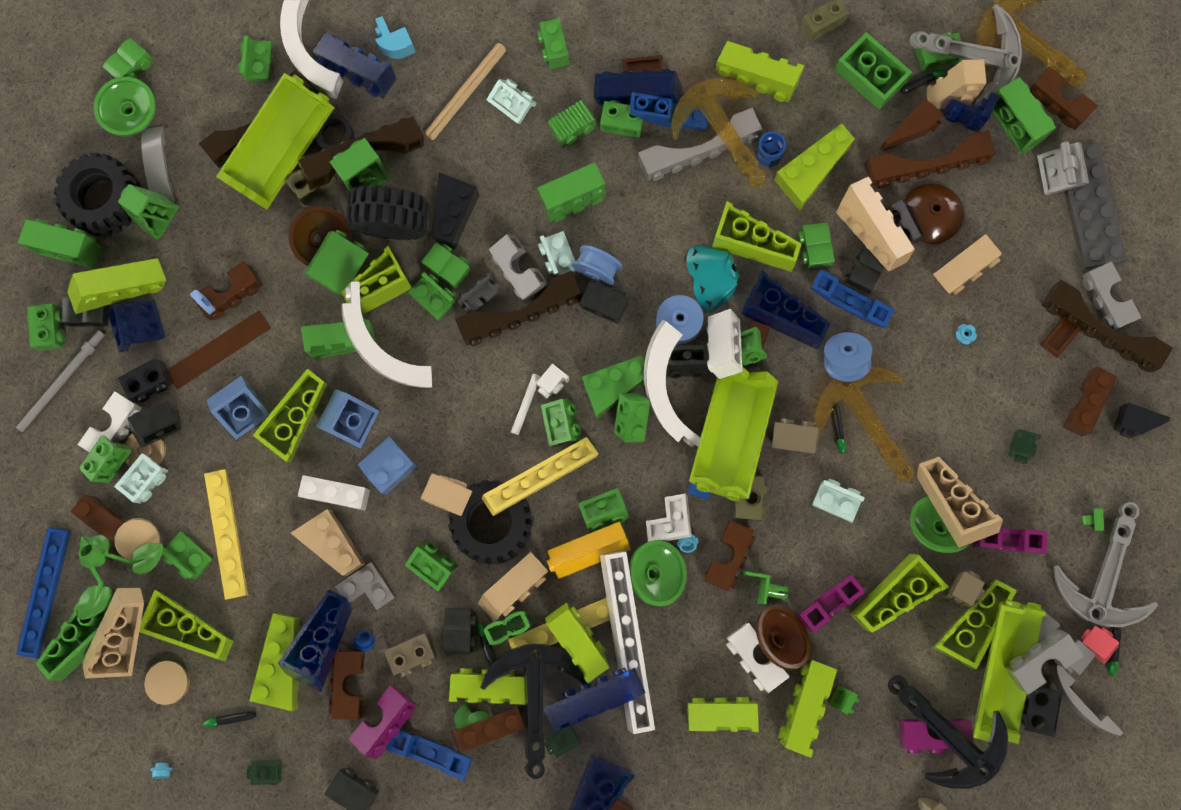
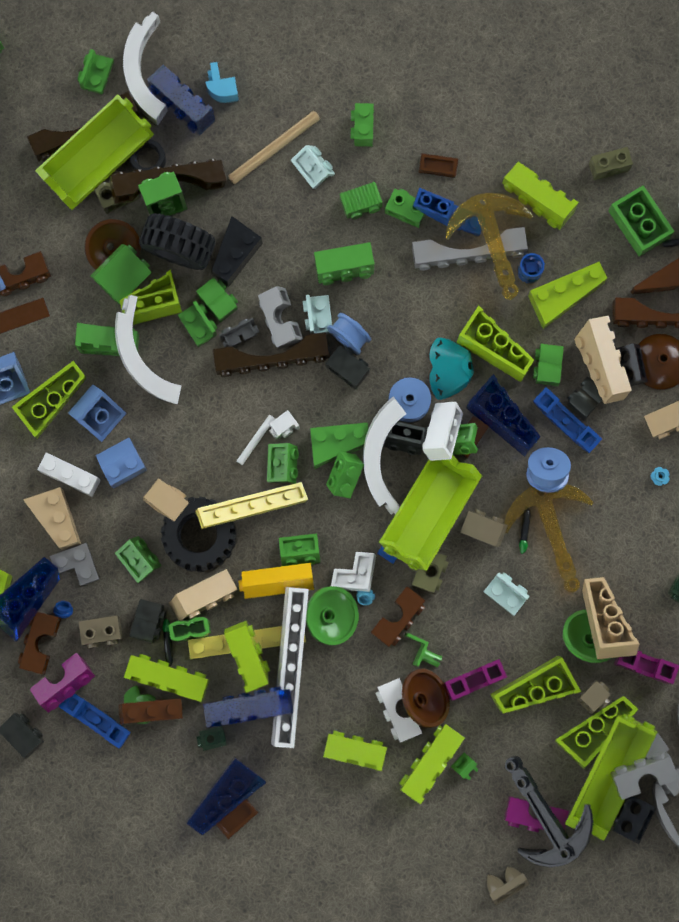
camera: 10 degrees right, 0 degrees up
(534, 680) = (199, 685): black piece -> none
(619, 86) = (437, 182): clear blue wedge -> none

